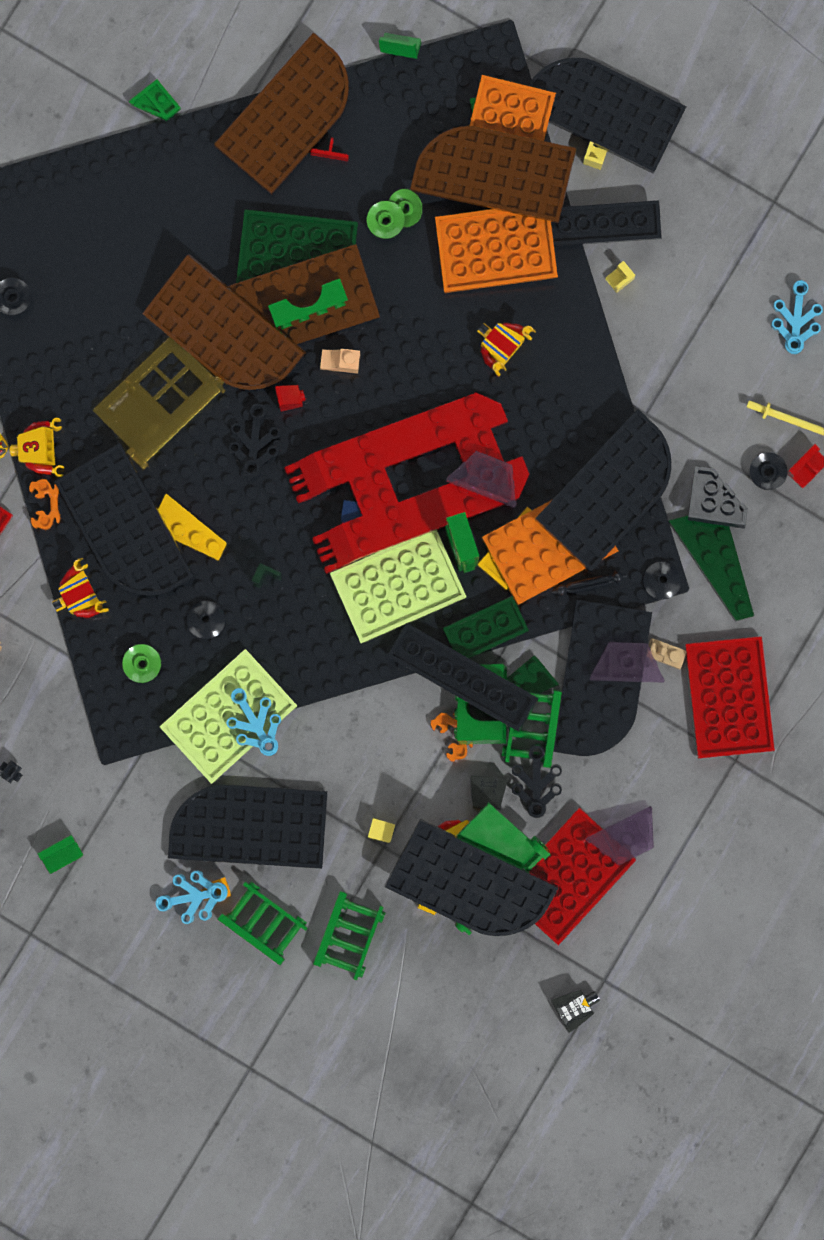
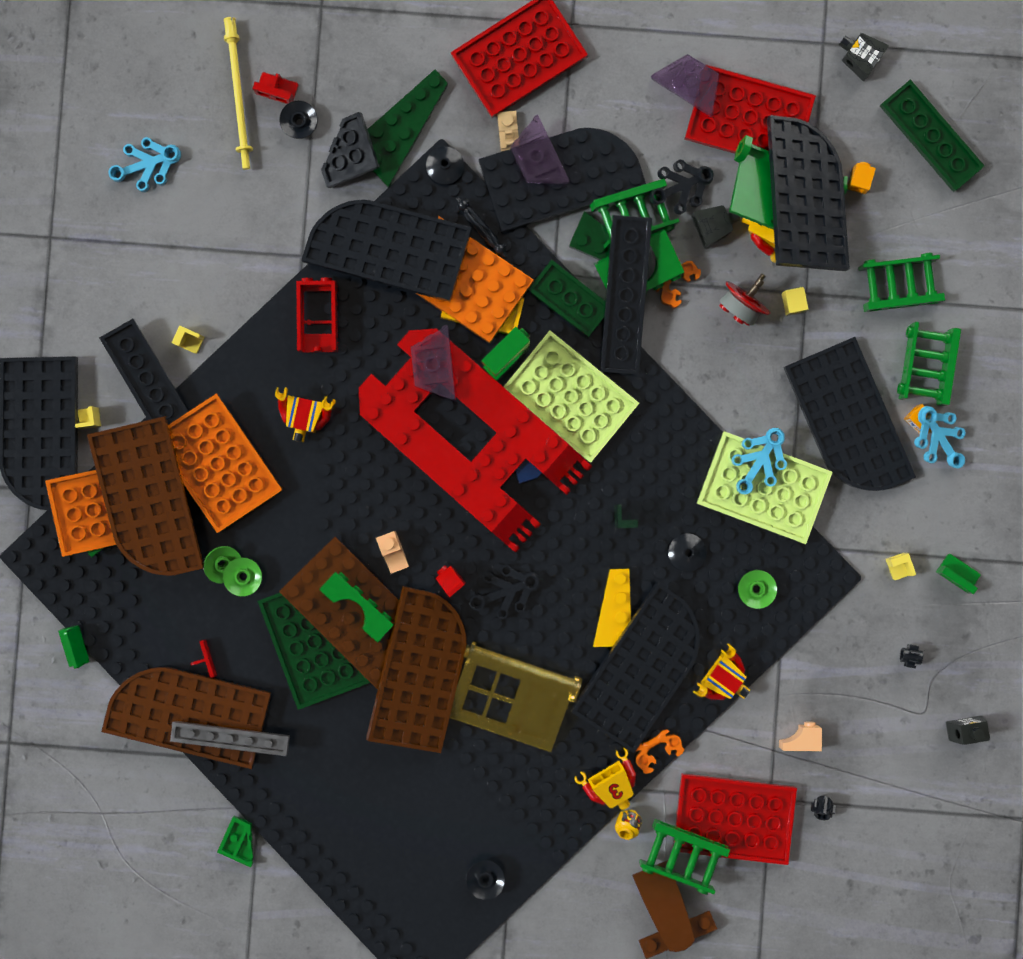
camera: 110 degrees left, 5 degrees up
(95, 804) = (900, 566): none -> light yellow panel
(250, 139) = (230, 738): none -> flat silver plate
(402, 781) = (743, 303): none -> piece
(463, 949) = (861, 177): none -> light orange brick
(468, 1034) = (932, 135): none -> dark green plate
(560, 388) = (316, 342): none -> red door

